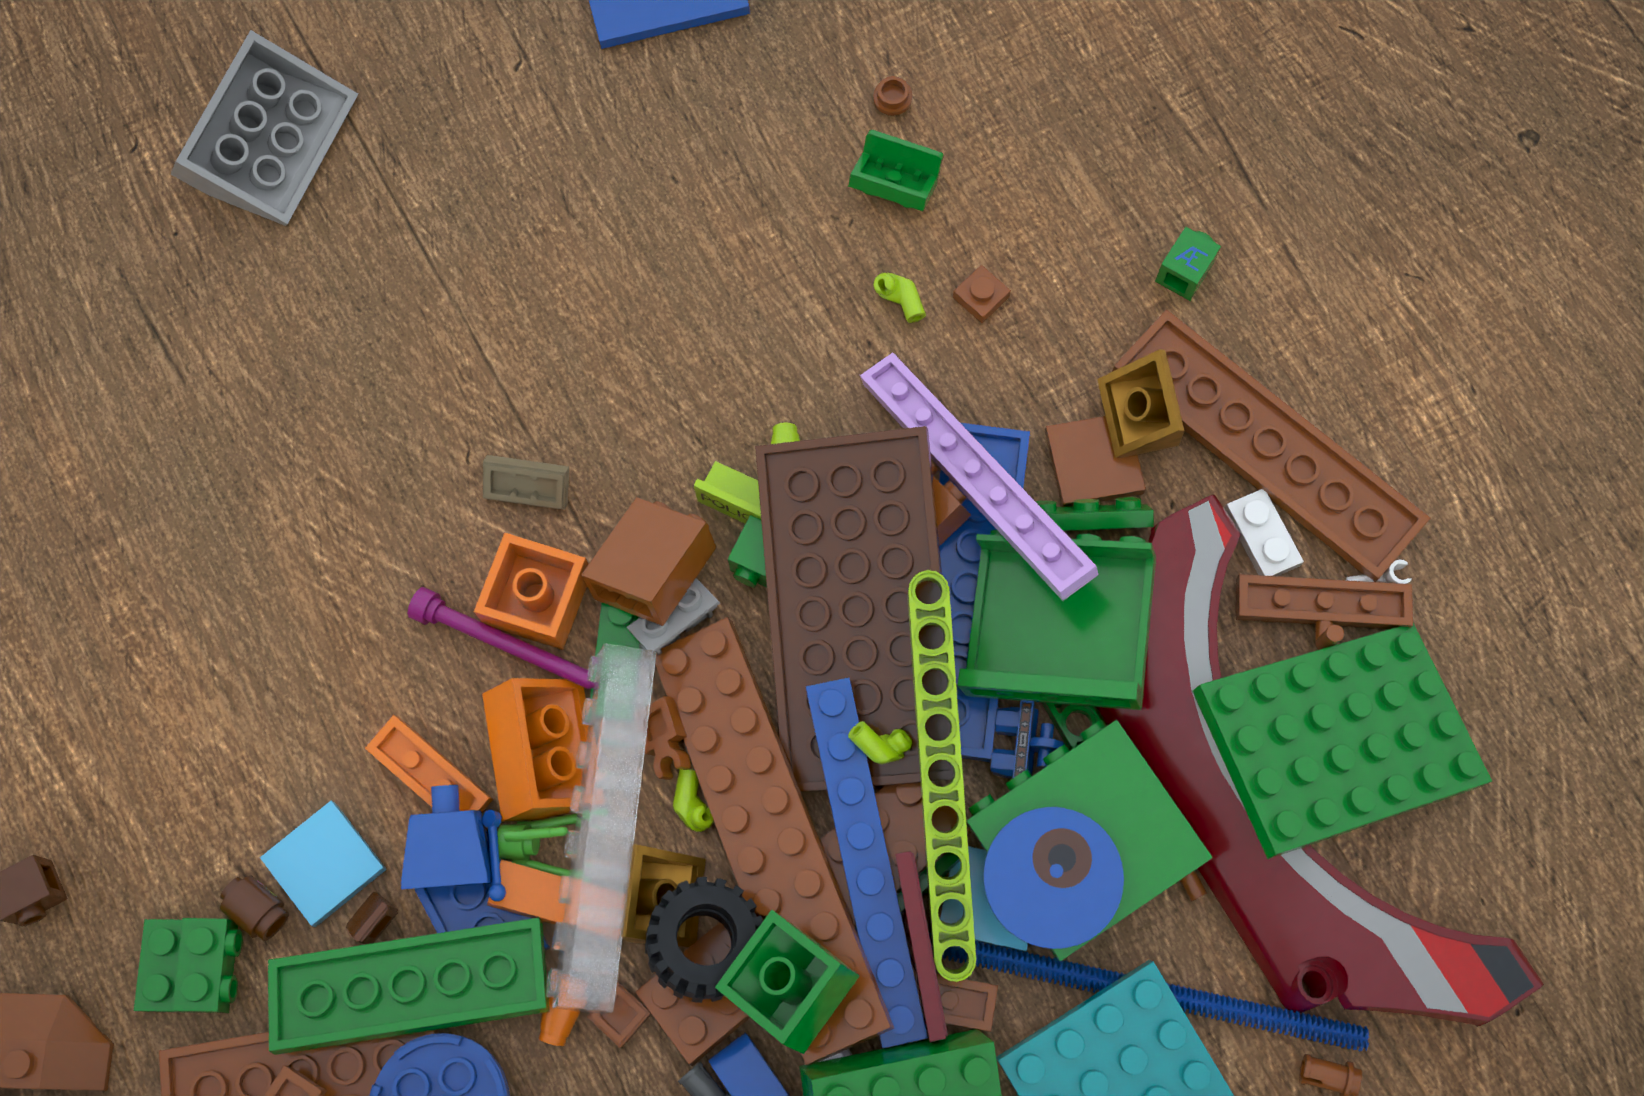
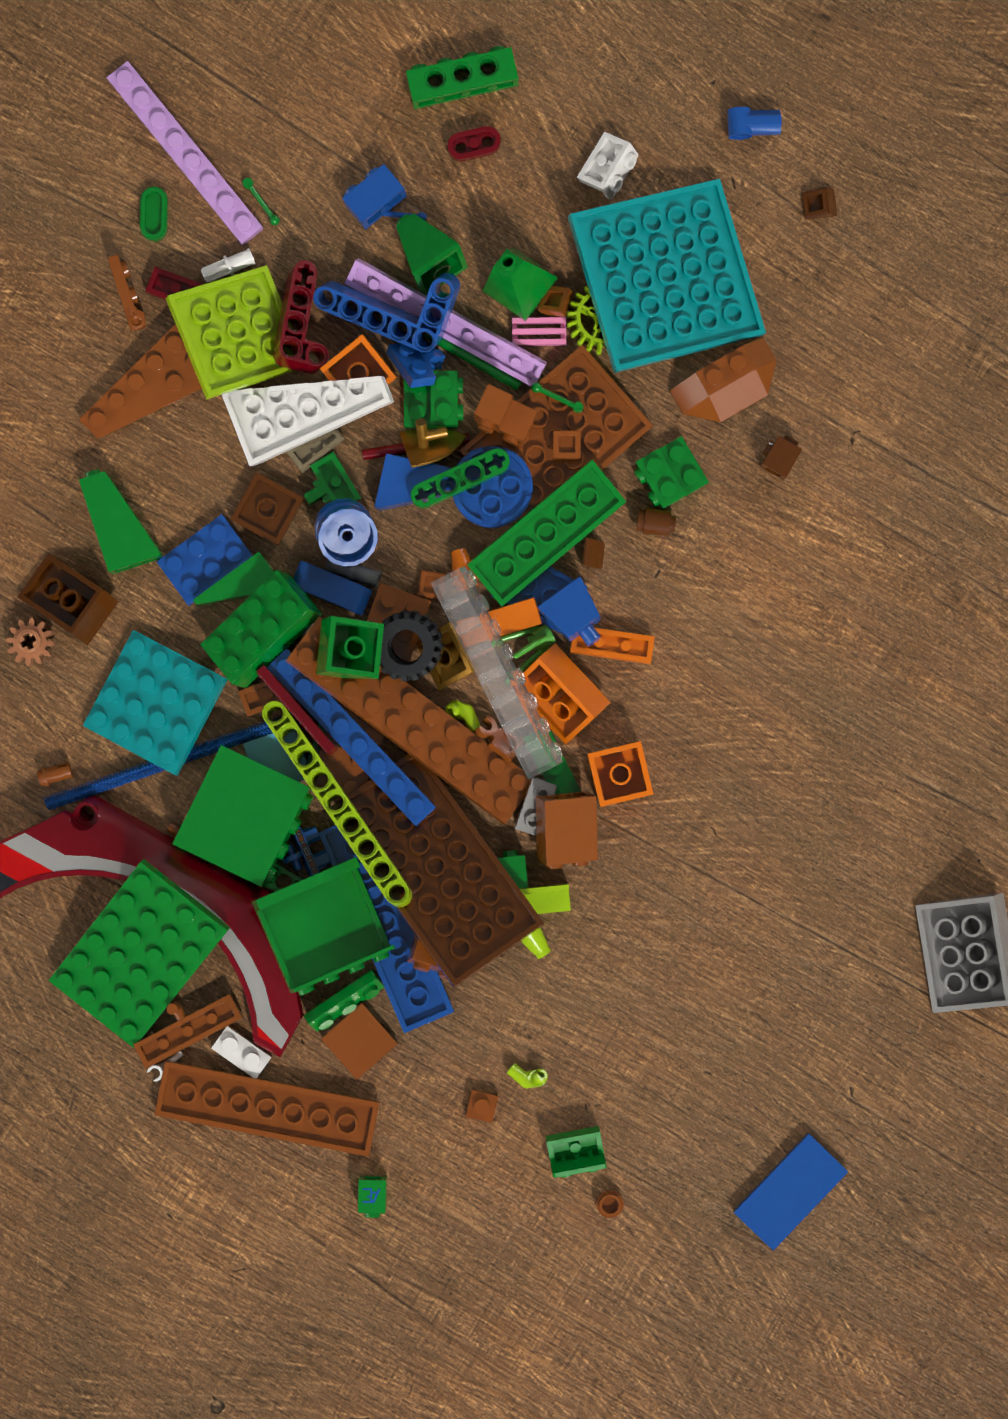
camera: 145 degrees right, 15 degrees up
(323, 863) = (637, 566): medium azure tile -> none
(429, 607) = (672, 731): magenta piece -> none
(492, 820) = (560, 640): blue hinge -> none
(525, 482) = (668, 833): dark tan plate -> none
(880, 748) = (376, 798): lime arm -> none
(982, 478) = (416, 983): lavender plate -> none
(1053, 877) = (247, 783): blue tile -> none
(1141, 406) = (349, 1081): pearl gold slope -> none

